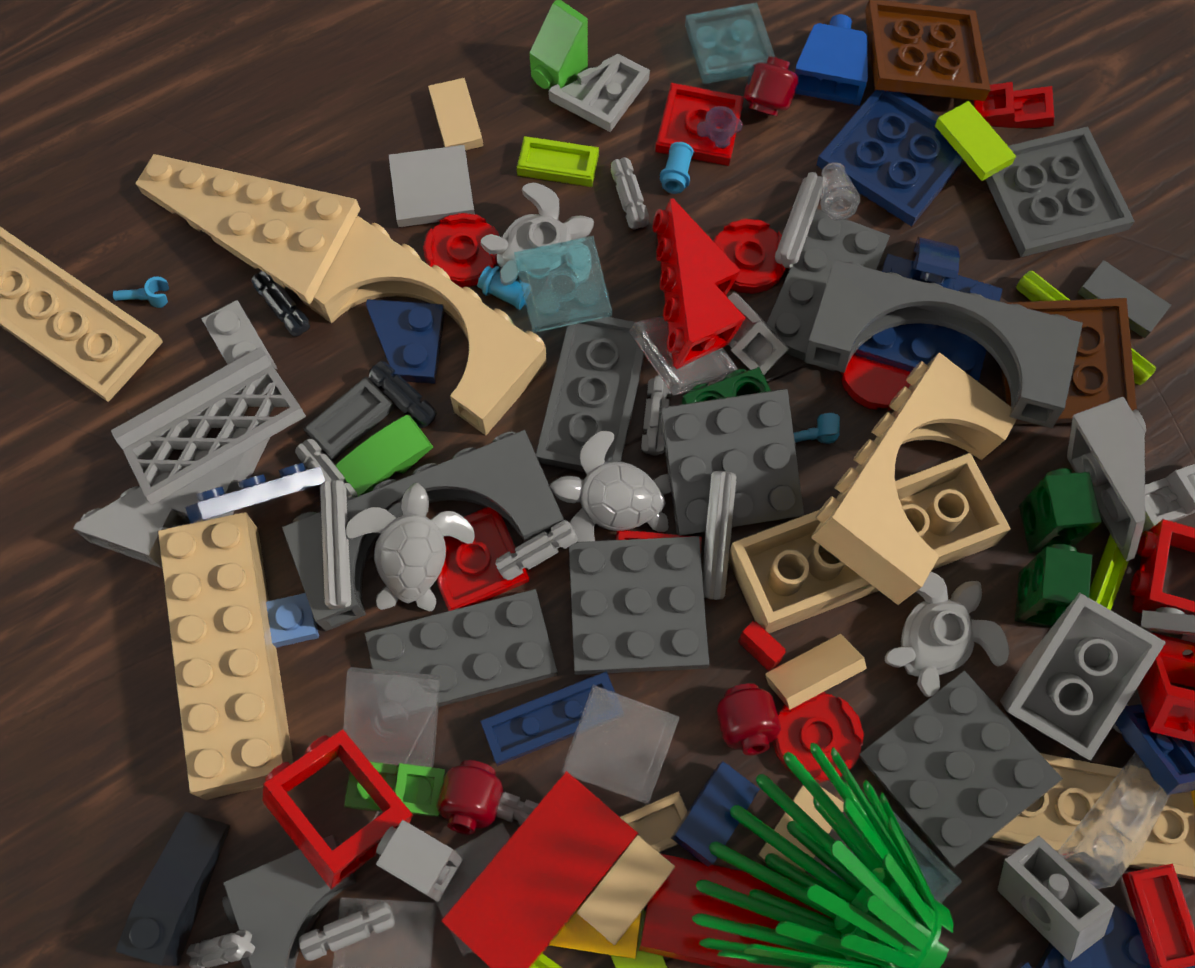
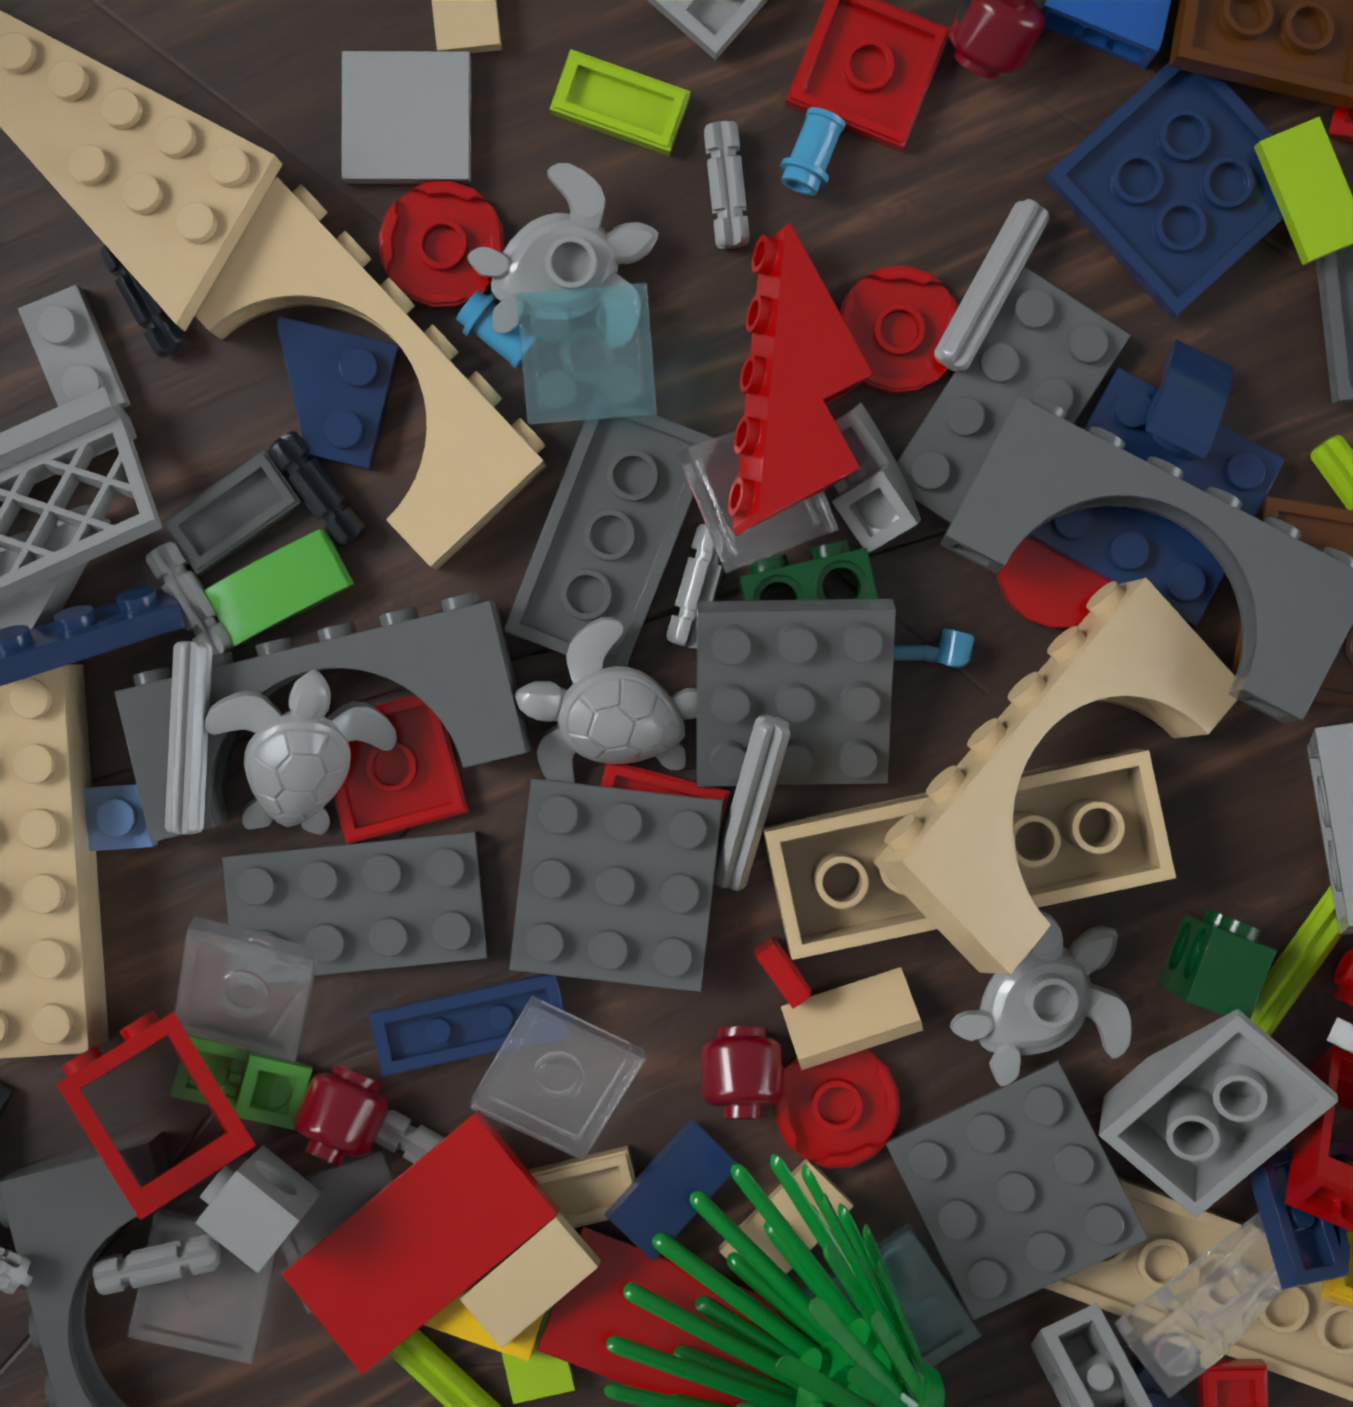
camera: 10 degrees right, 20 degrees up
(536, 550) = (482, 784): light grey axle -> none
(720, 117) = (899, 73): clear purple plate -> none
(838, 193) = (1061, 254): clear cone -> none
(1059, 510) = (1259, 853): dark green brick -> none

